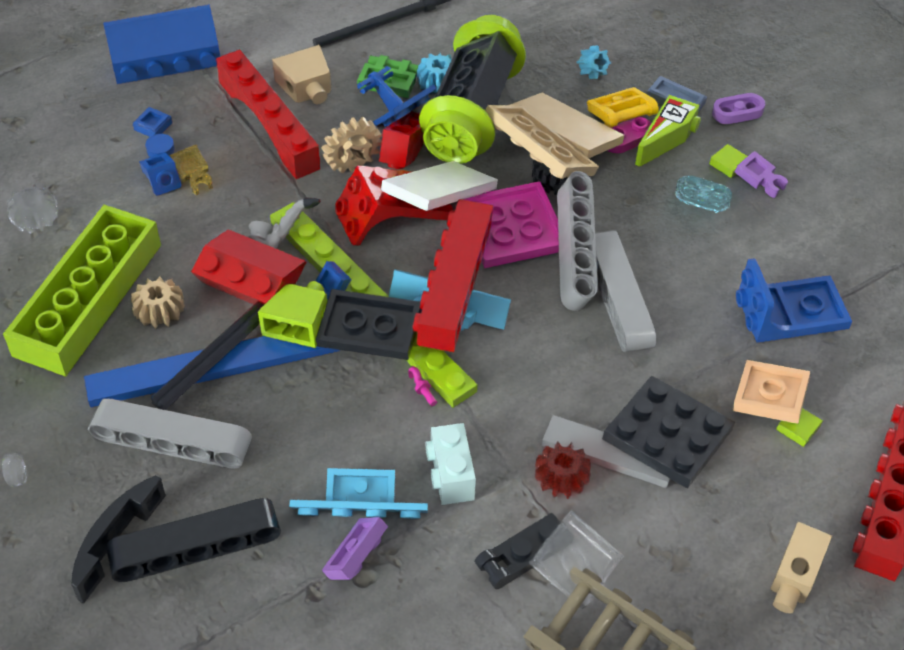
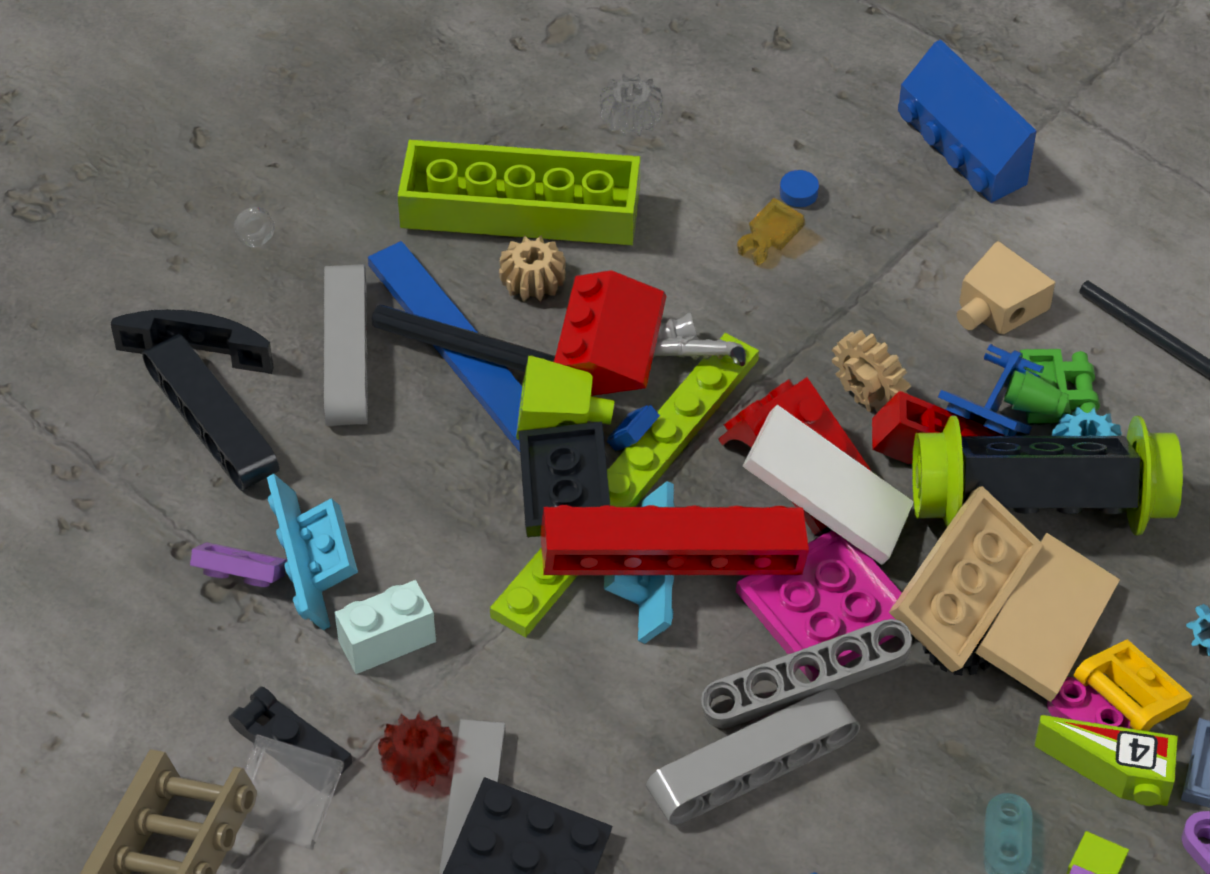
camera: 75 degrees right, 0 degrees up
(152, 122) = (839, 167): blue tile -> none
(161, 173) = (745, 199): blue bracket -> none
(293, 142) = (942, 231): red arch -> none
(403, 78) = (1034, 395): none -> bright green cone
(422, 386) = (505, 571): dark pink hand -> none

